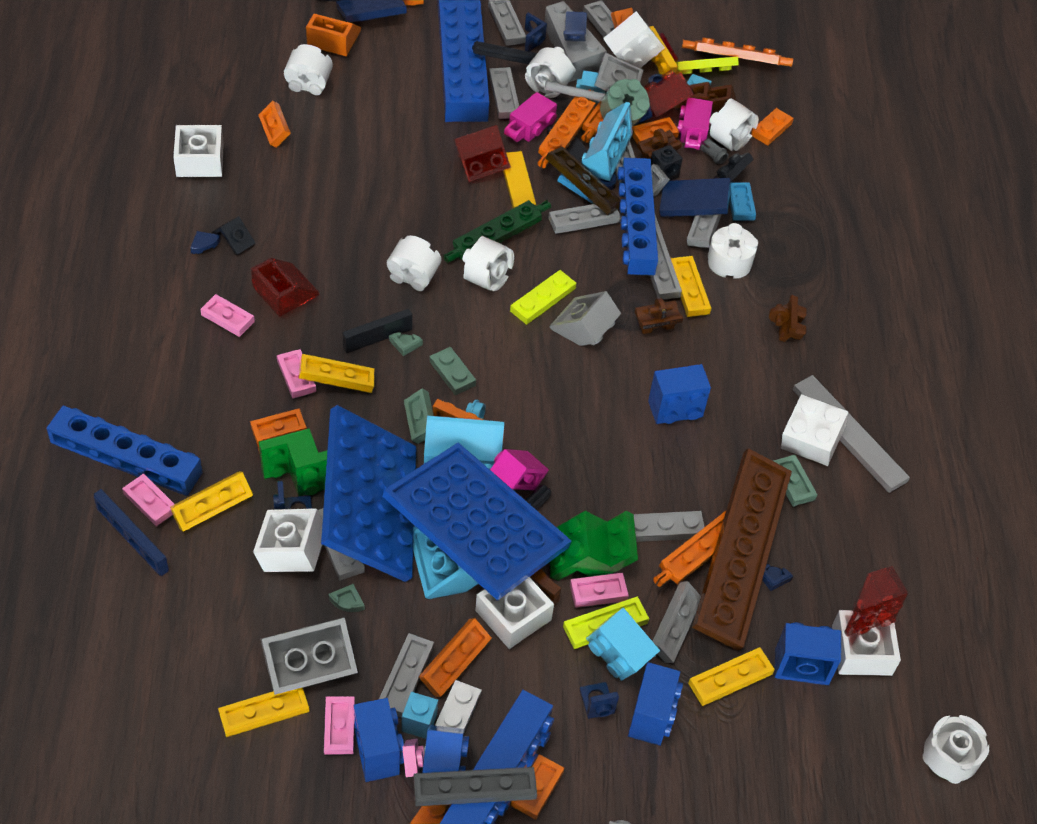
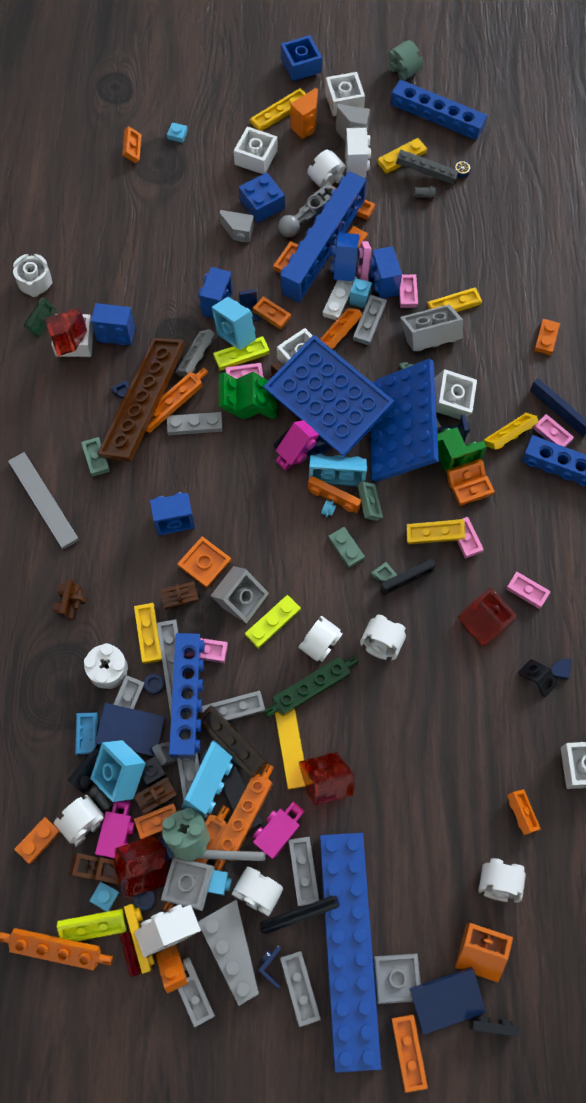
camera: 175 degrees left, 15 degrees up
(123, 649) = (547, 337): none -> orange plate
(416, 27) = (395, 976): none -> light grey tile
(474, 786) = (328, 224): dark grey tile -> none
(562, 688) = (272, 313): none -> orange plate
(575, 26) = (230, 938): dark blue bracket -> none
(612, 268) = (214, 651): none -> bright pink plate
(631, 354) = (204, 562): none -> orange plate
(676, 244) = (154, 684): none -> dark blue tile
(701, 152) = (117, 771): none -> medium azure brick
(731, 676) = (163, 321): yellow plate -> none
(814, 430) = (72, 489): white brick -> none
(923, 682) = (36, 321): none -> clear green plate

